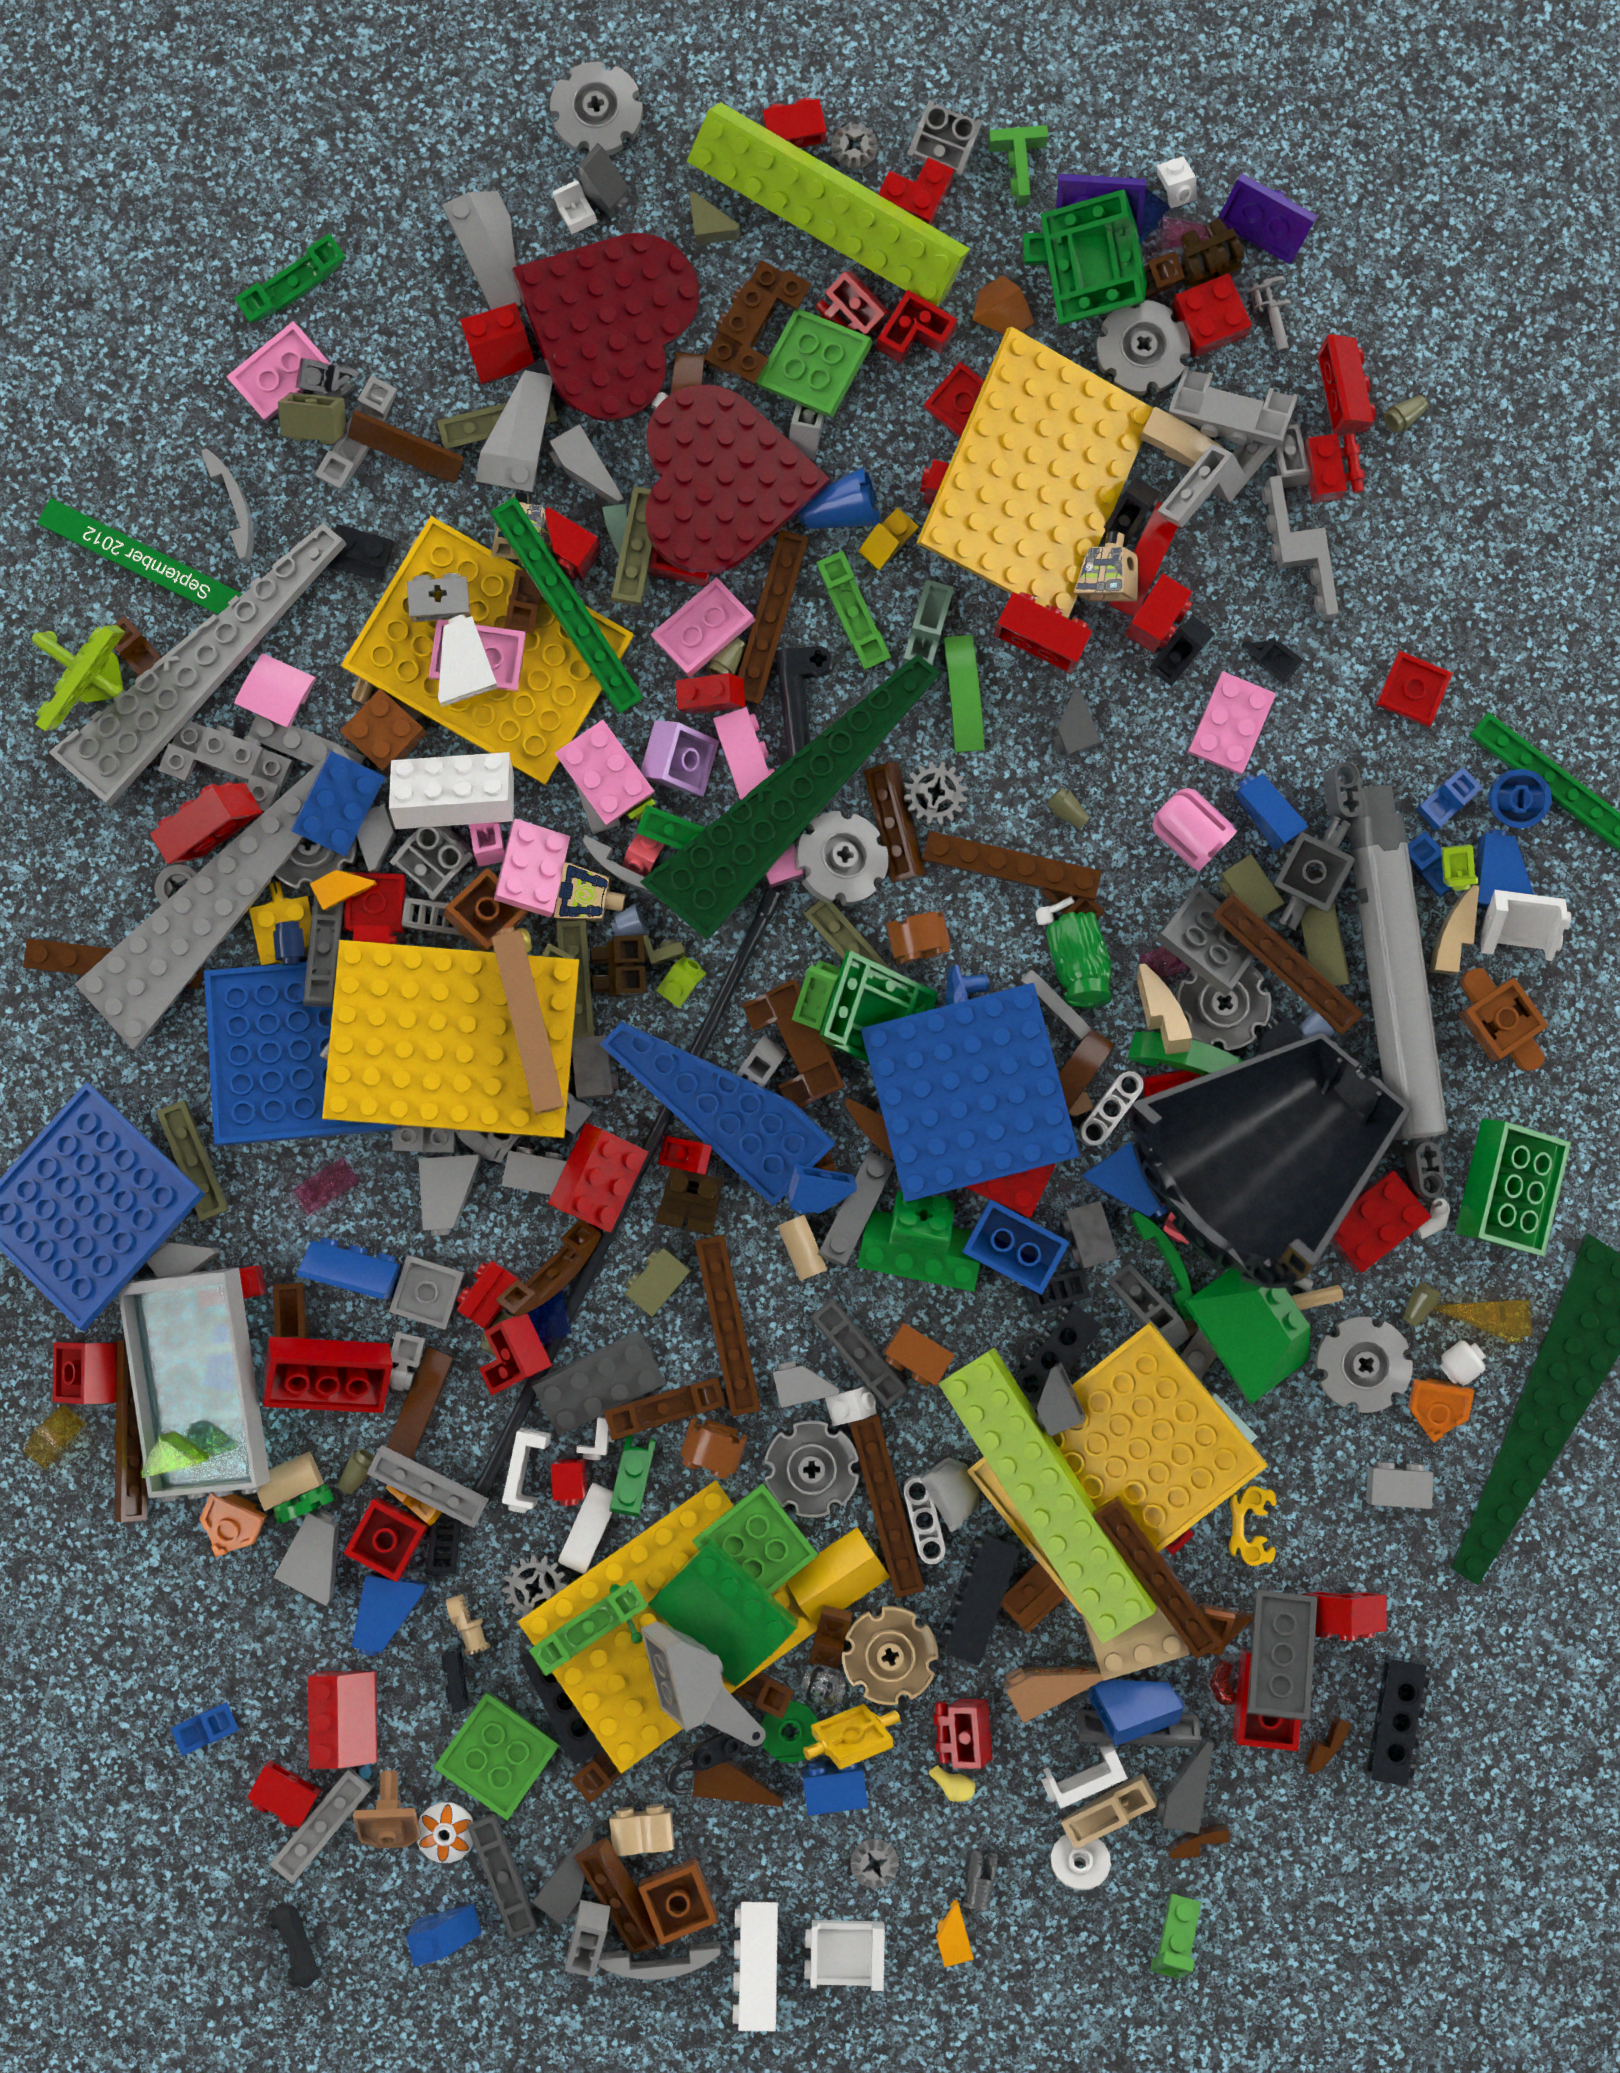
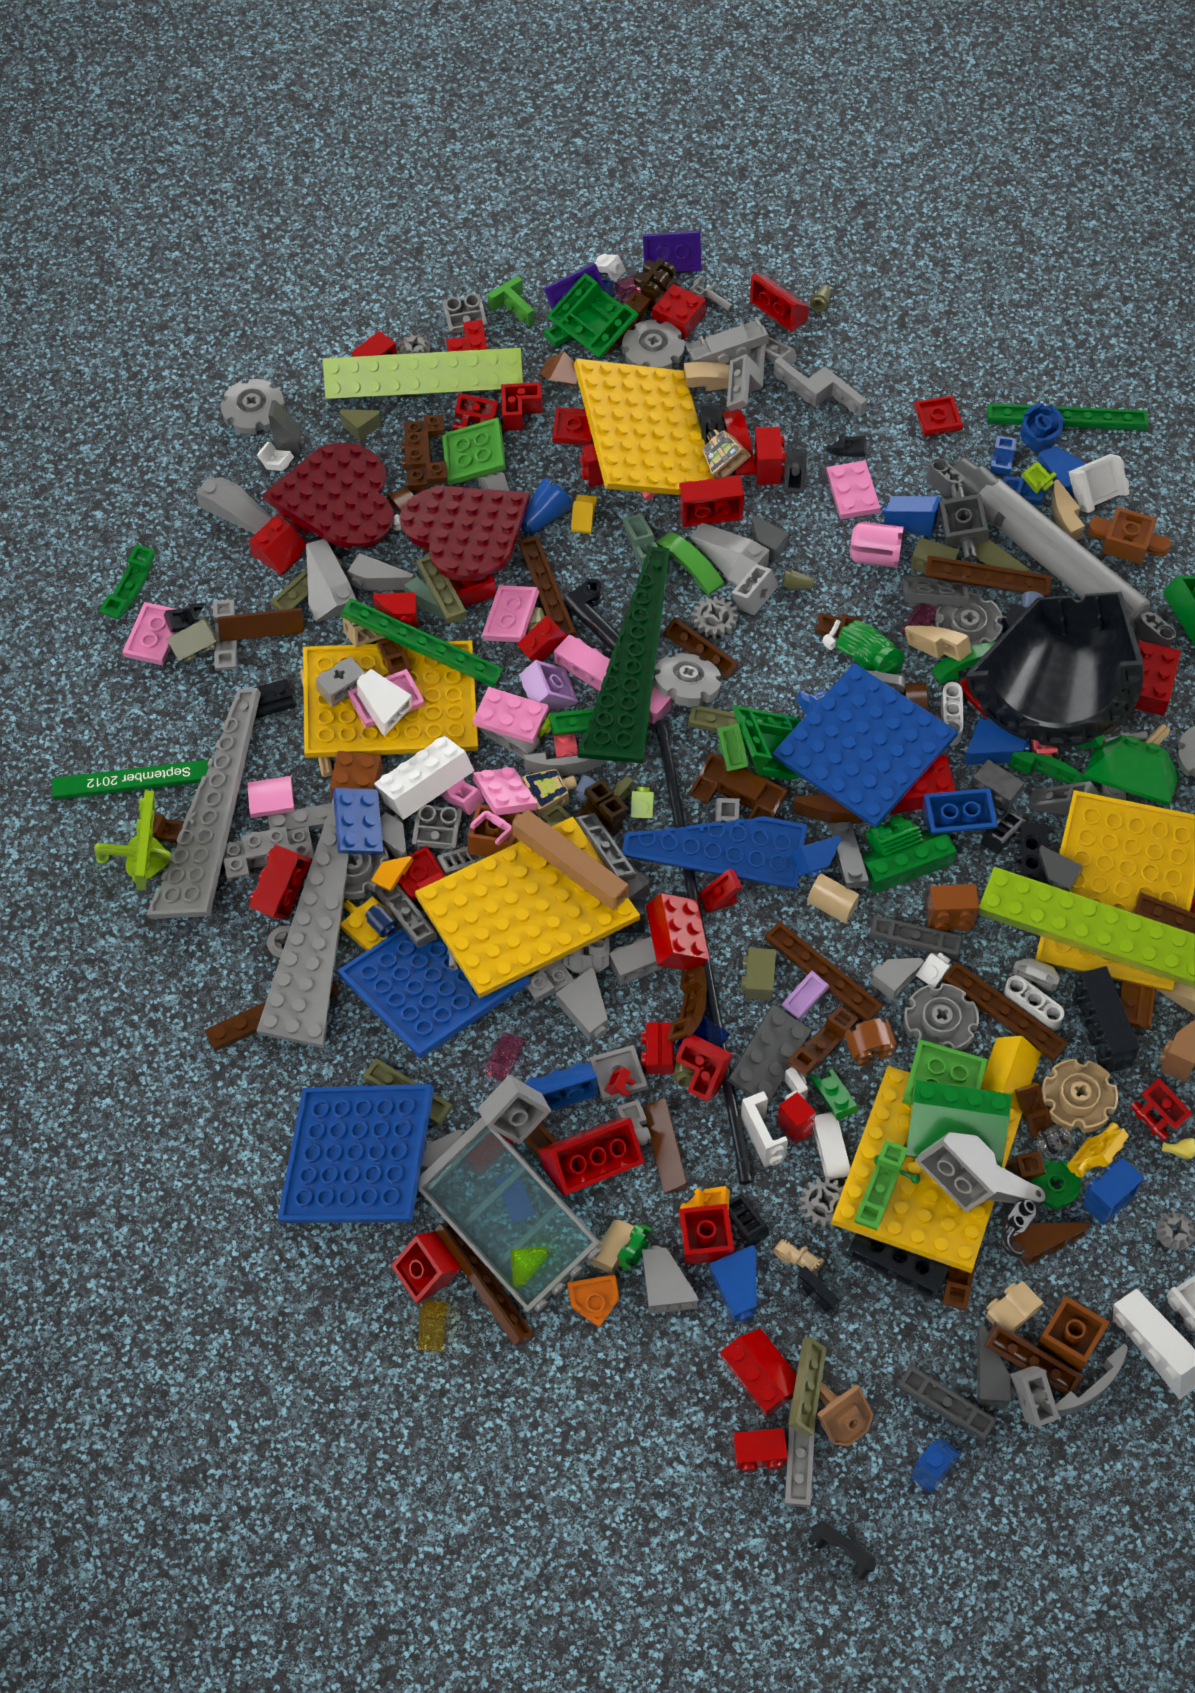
camera: 30 degrees left, 25 degrees down
(204, 1728) = (672, 1446): blue slope -> none
(242, 537) = (153, 703): light grey slope -> none
(263, 1285) = (514, 1109): none -> light grey brick
(356, 1471) = (654, 1209): olive cone -> none
(371, 1770) = (807, 1387): none -> olive plate
(411, 1310) = (617, 1082): none -> red tile
(427, 1486) = (708, 1180): light grey plate -> none
(445, 1817) = (888, 1416): dish -> none
(490, 909) = (495, 820): none -> bright pink piece
(497, 1755) = (882, 1327): bright green plate -> none
(587, 1024) = (605, 847): none -> dark grey plate
(688, 1341) = (805, 995): none -> lavender tile
(703, 1200) = (744, 915): dark brown hips -> none
(852, 610) = (591, 559): bright green slope -> none
(918, 937) = (766, 689): dark orange brick -> none
(1006, 790) = (755, 589): none -> light grey brick
(1012, 866) = (789, 626): reddish brown plate -> none
(1018, 719) = (730, 552): none -> light grey wedge
(1326, 467) = (805, 341): red brick -> none
(1439, 1218) = (1185, 659): white arm -> none

